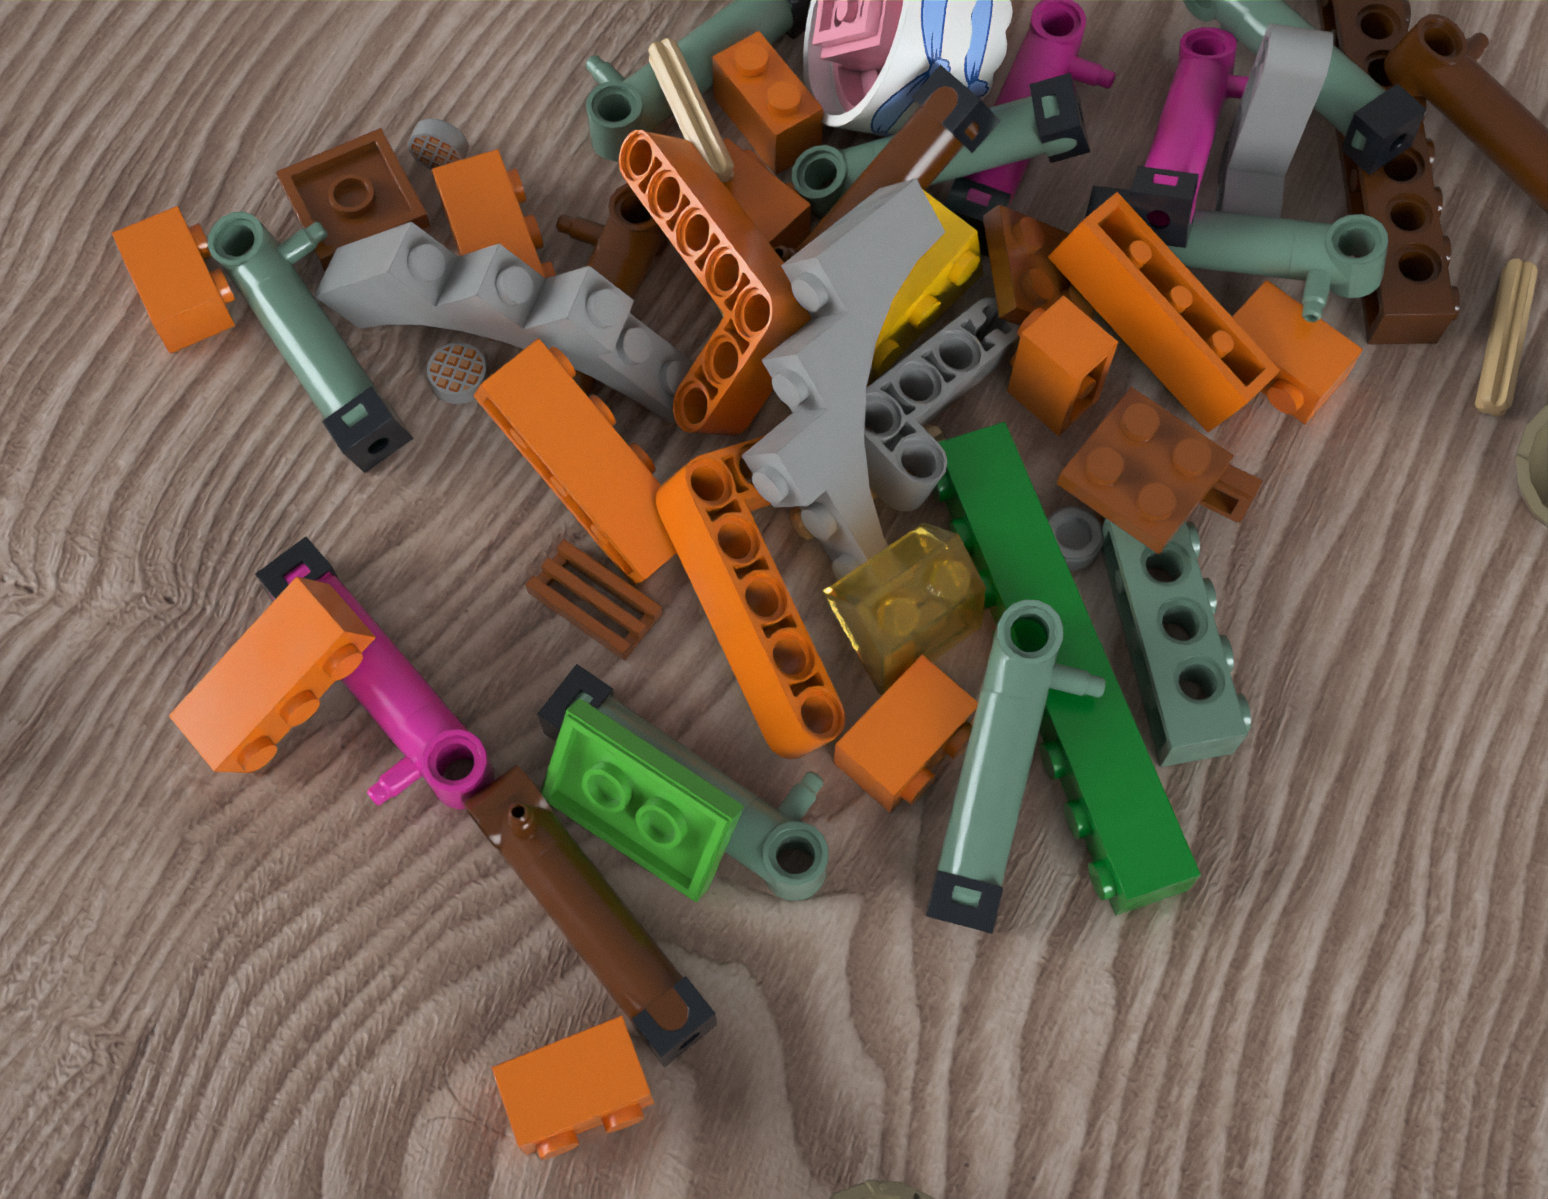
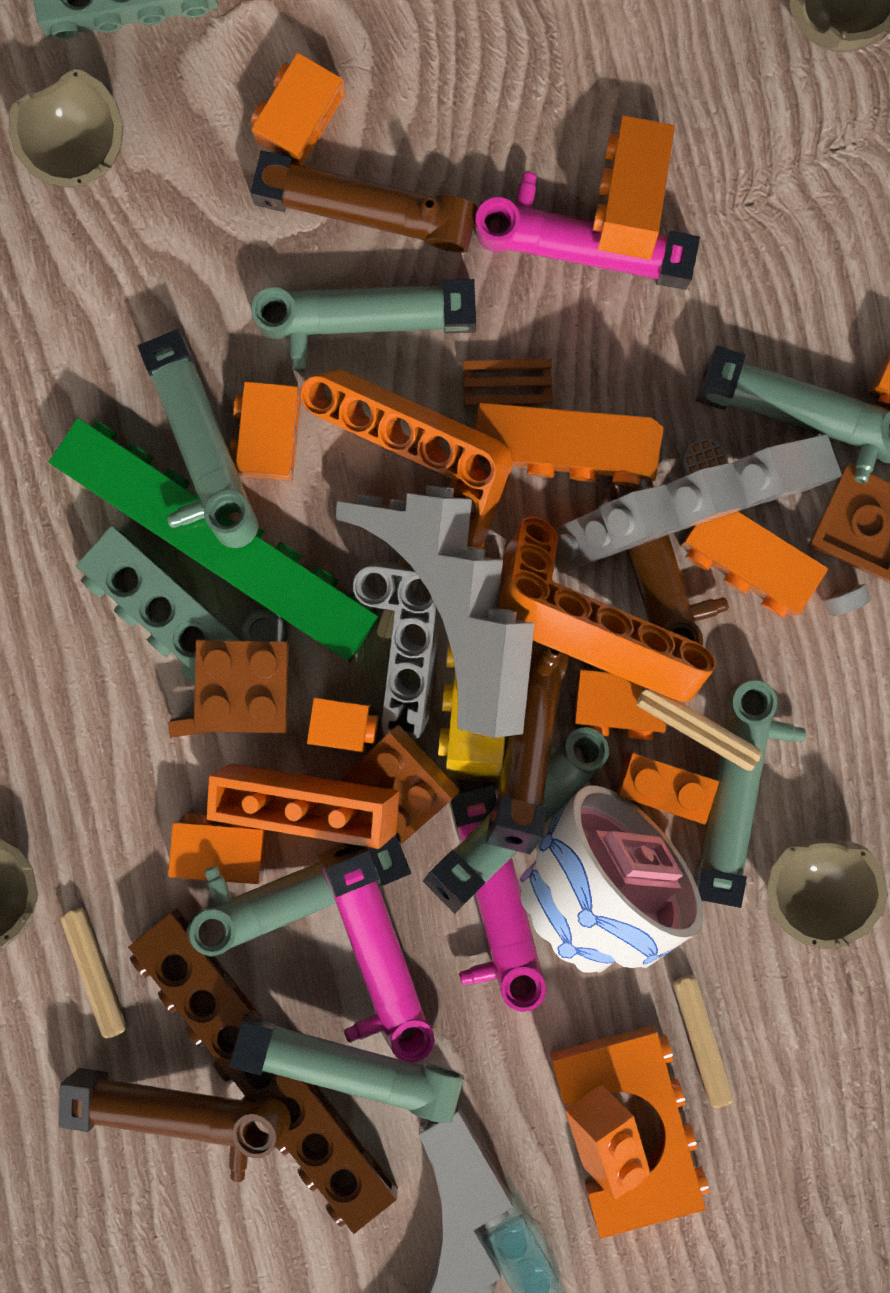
camera: 145 degrees right, 20 degrees up
(639, 800) = (379, 273): bright green tile -> none
(909, 602) = (322, 498): clear yellow slope -> none
(1272, 119) = (325, 981): light grey beam -> none

